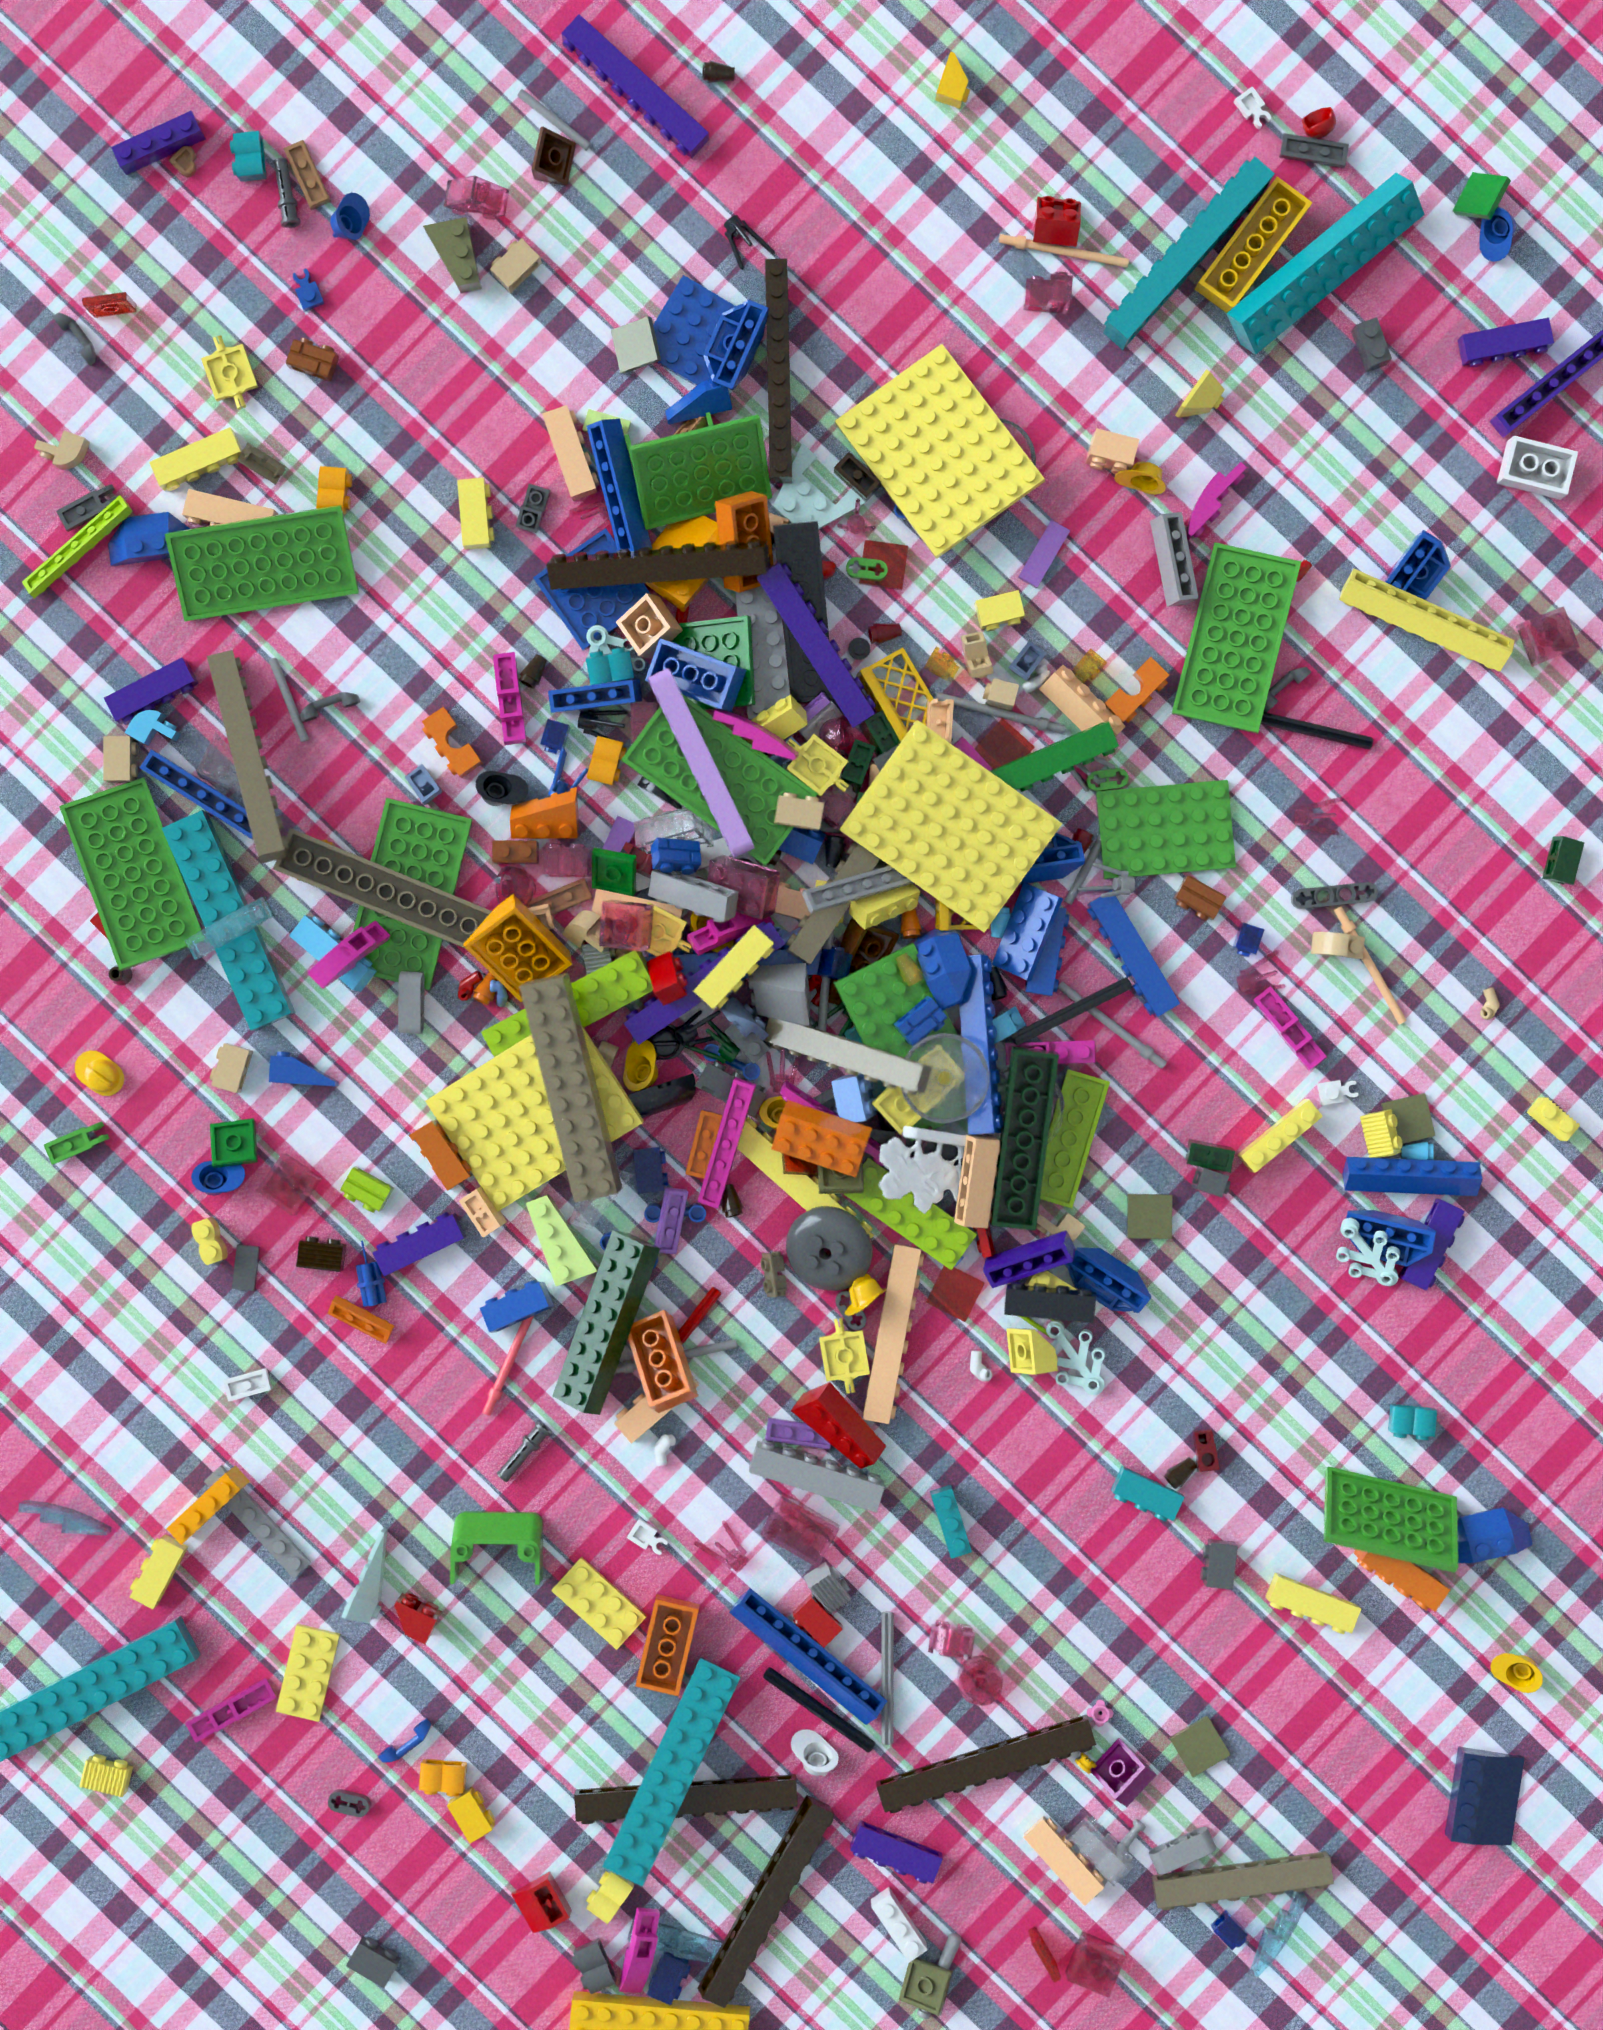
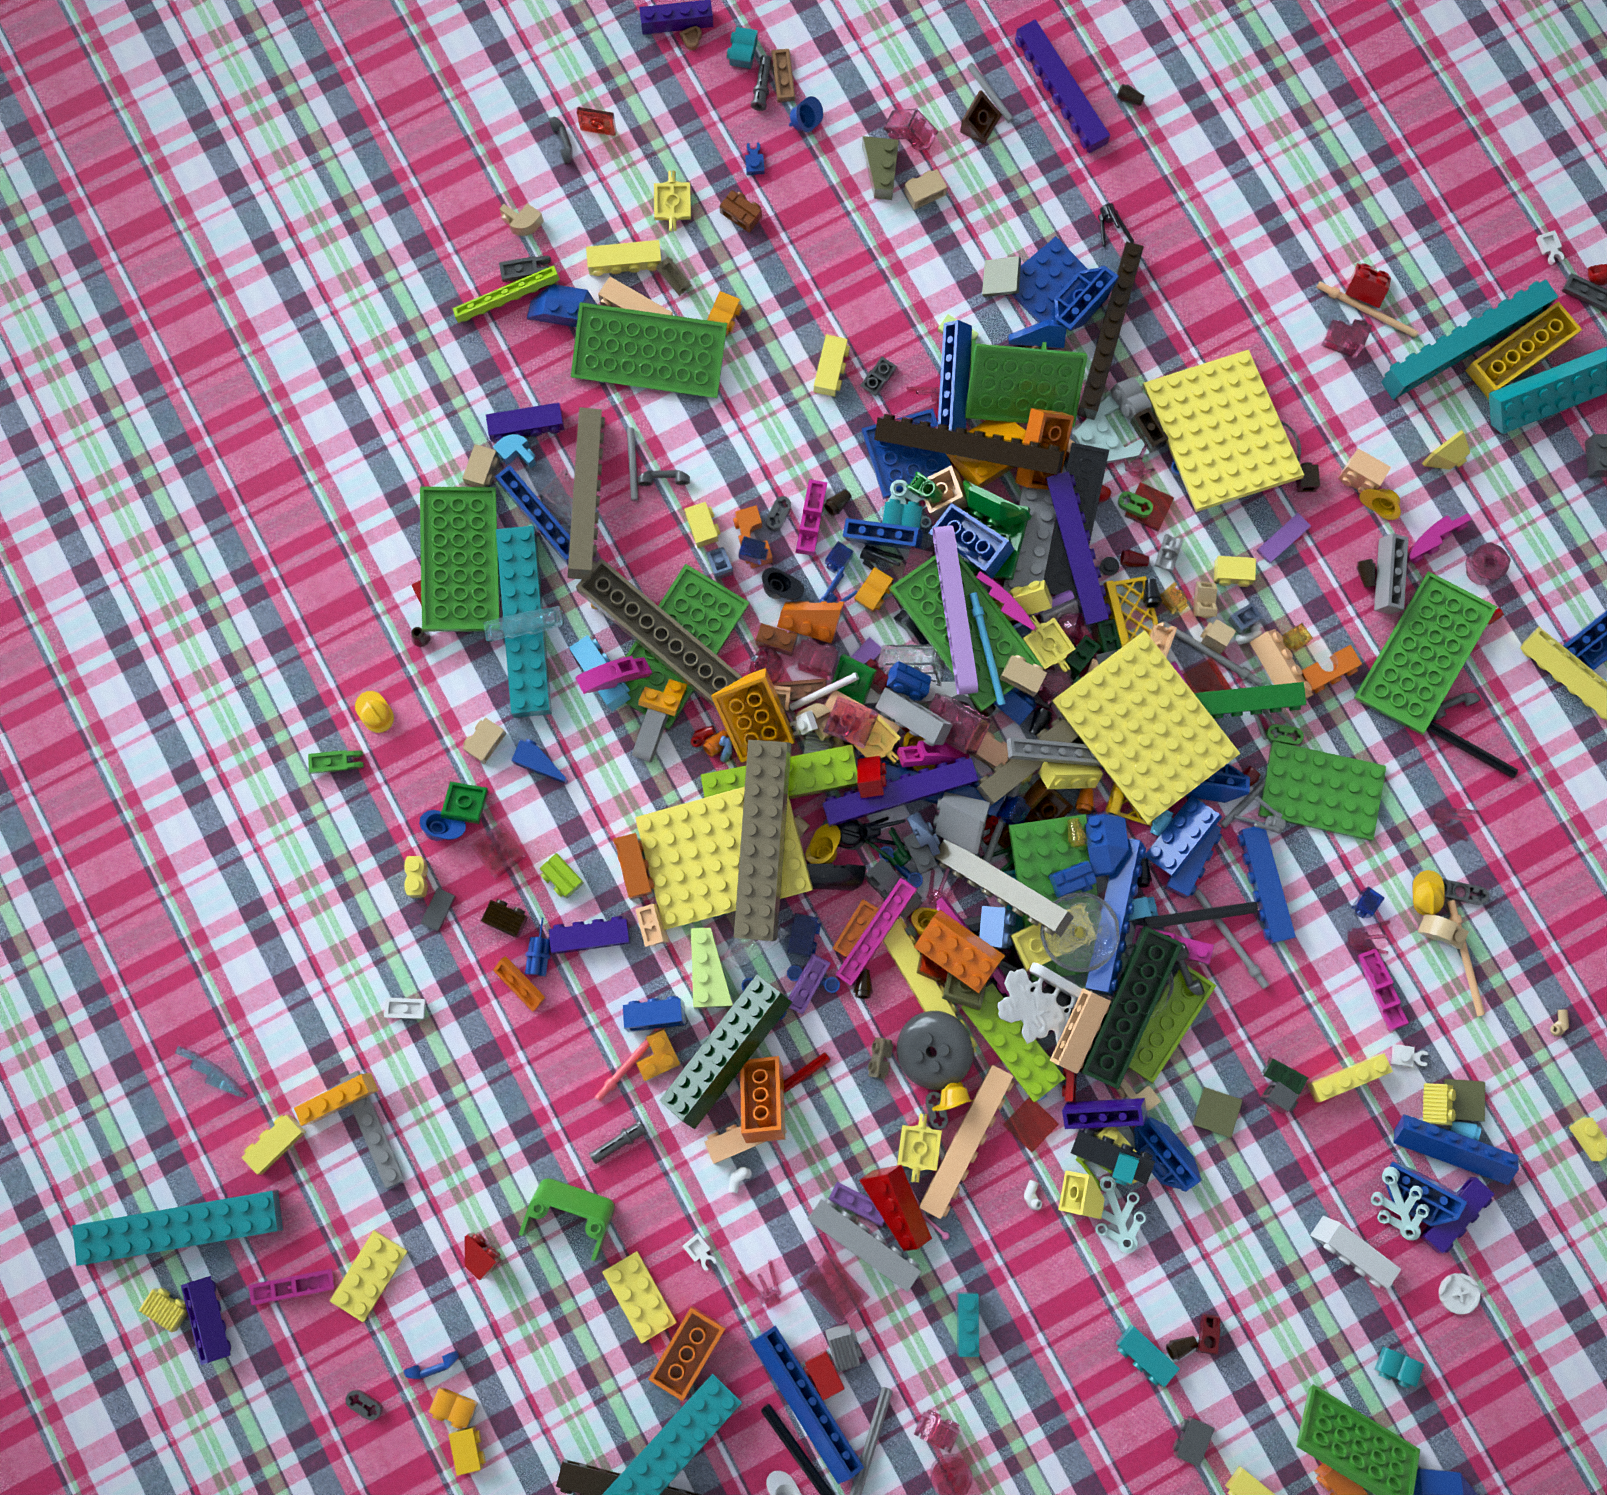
camera: 20 degrees right, 10 degrees down
(154, 1773) = (206, 1320): none -> dark purple brick
(365, 1598) = (442, 1223): light aqua wedge -> none
(389, 746) = (701, 524): none -> light yellow brick
(413, 965) = (666, 701): none -> light orange plate
(456, 762) = (753, 550): none -> clear blue brick
(477, 705) = (775, 512): none -> dark grey beam
(541, 1348) = (663, 1056): none -> light orange plate
(570, 453) = (922, 342): light nougat brick -> none
(576, 939) = (804, 723): none -> white plate
(586, 895) = (824, 691): none -> white bar
(622, 628) = (923, 486): none -> green piece
(629, 1366) = (732, 1097): light grey bar -> none
(707, 628) = (993, 508): none -> green wedge
(727, 757) = (978, 613): none -> medium azure bar
(734, 967) = (930, 784): light yellow brick -> none
(825, 445) = (1130, 397): none -> light grey brick
(900, 1437) = (945, 1235): none -> bright pink hinge
(915, 668) = (1151, 594): none -> black cone
(920, 613) = (1168, 552): none -> light grey hips
(953, 84) = (1315, 158): yellow slope -> none
(1052, 473) = (1311, 480): none -> dark brown brick
(1065, 1314) = (1125, 1169): none -> teal brick
(1087, 1091) = (1194, 986): none -> dark grey bar
(1147, 564) = (1367, 572): none -> dark brown cone
(1199, 897) = (1335, 855): dark orange brick -> none
(1290, 511) = (1497, 561): none -> clear pink brick
(1310, 907) = (1428, 892): none -> yellow piece
(1335, 1318) = (1355, 1252): none -> white wedge
(1456, 1324) = (1459, 1293): none -> white tile

